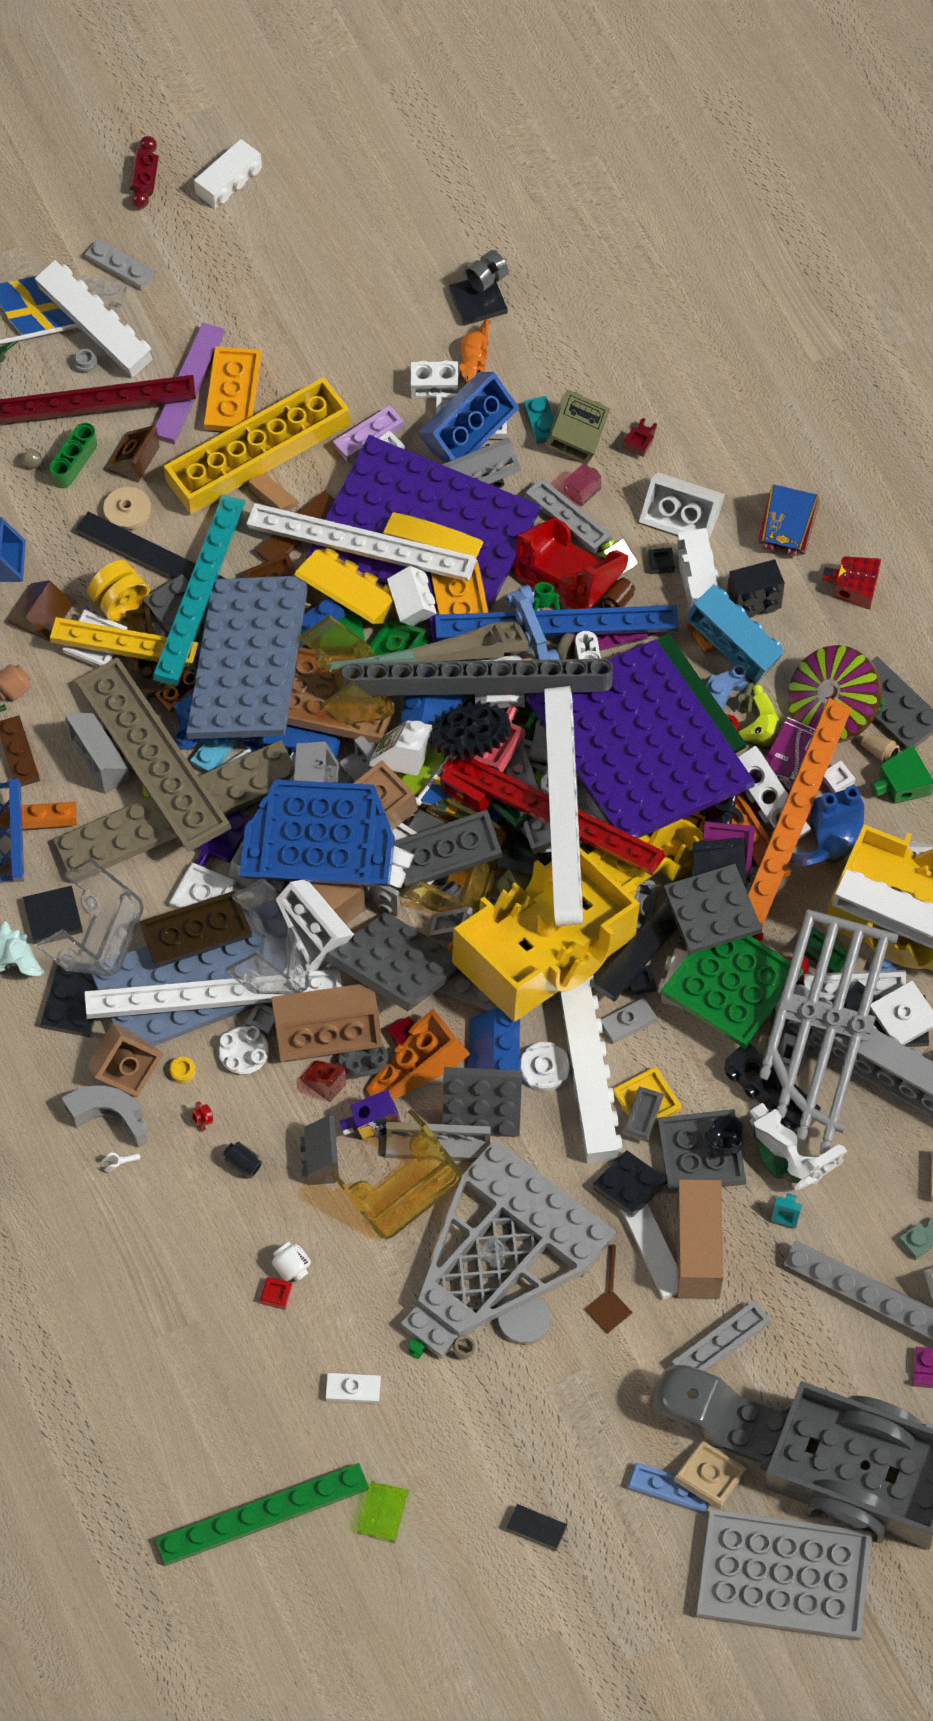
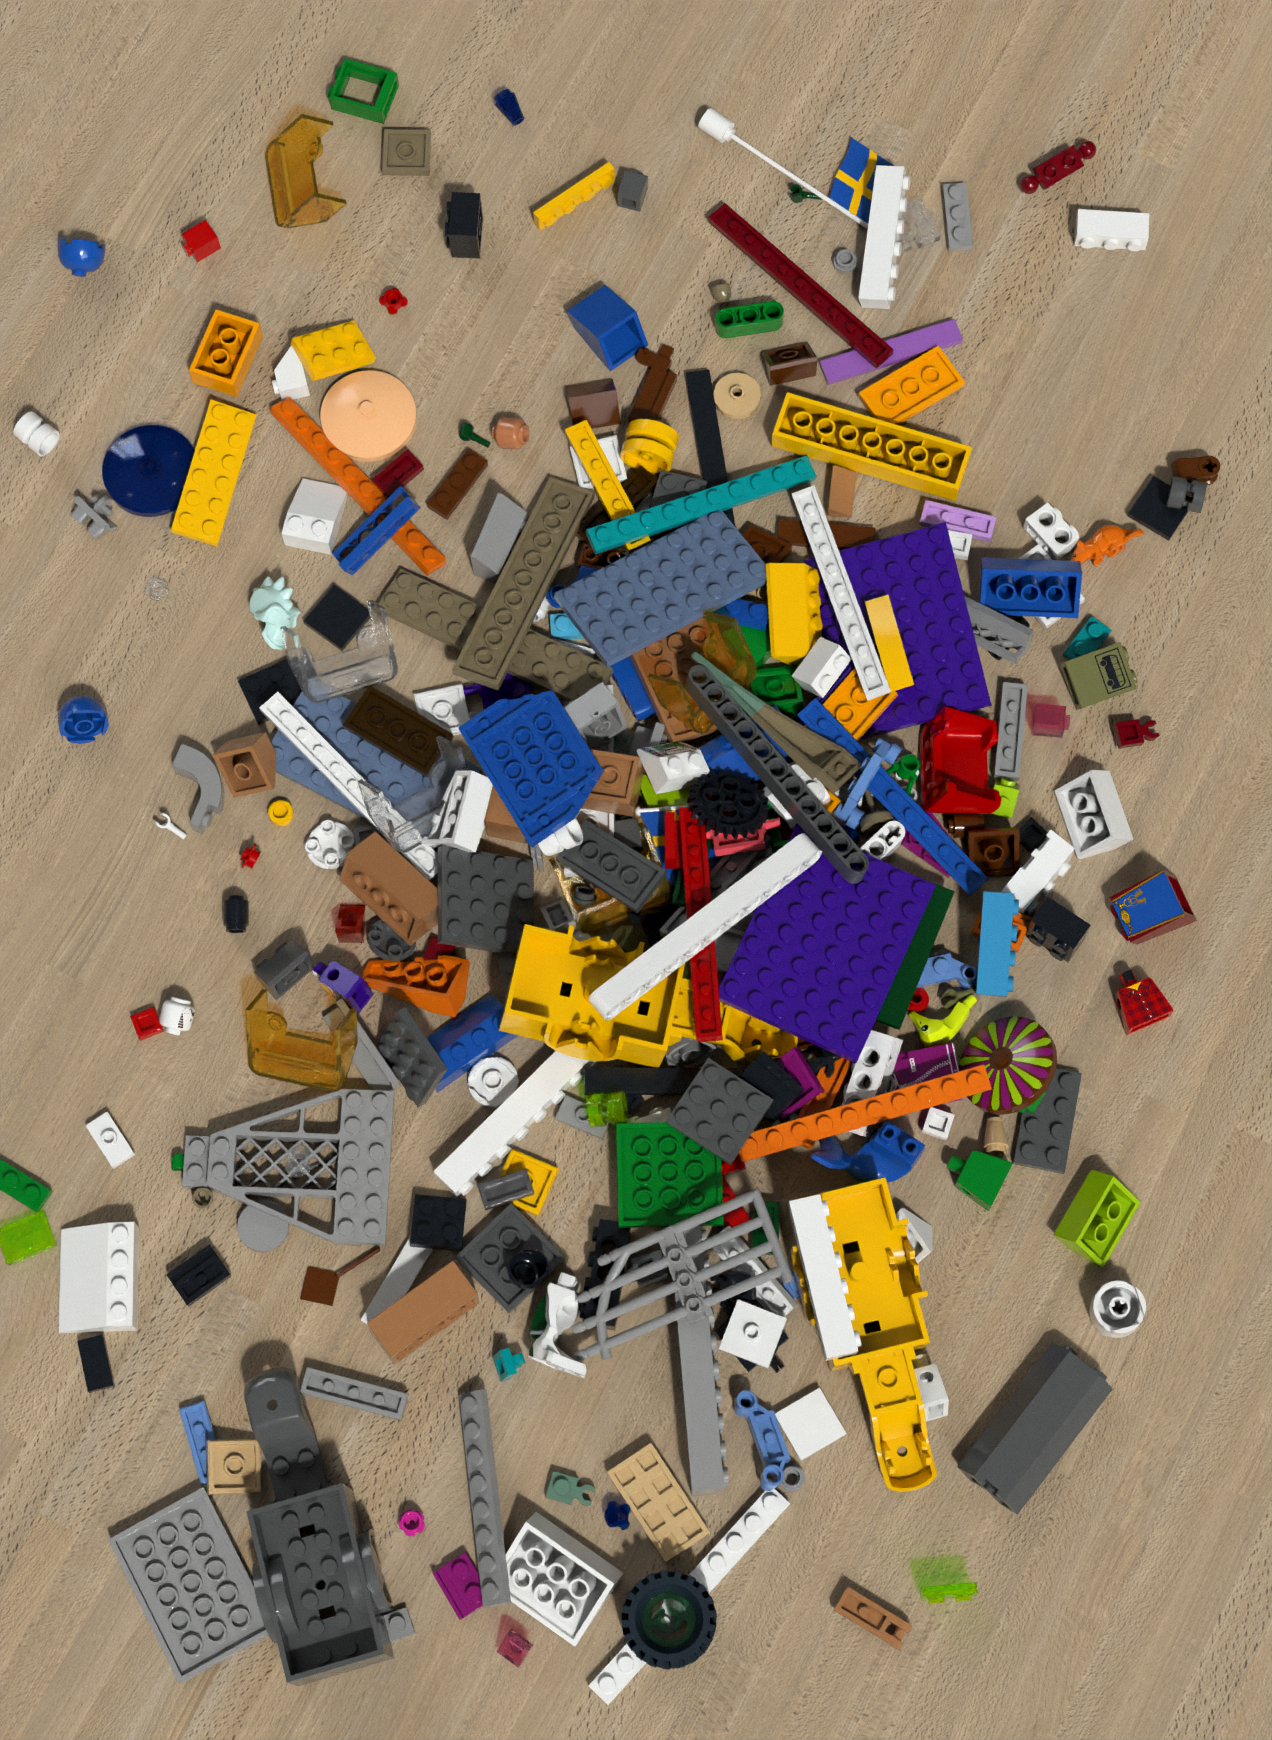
camera: 55 degrees right, 10 degrees up
(67, 557) = (657, 385): none -> reddish brown piece
(466, 1474) = (99, 1278): none -> white slope
(471, 250) = (1195, 469): none -> reddish brown piece
(527, 1395) = (198, 1275): none -> black plate
(645, 983) = (616, 1108): none -> clear neon green wheel
(655, 587) = (994, 850): none -> reddish brown slope
(861, 1364) = (417, 1517): none -> dark pink plate

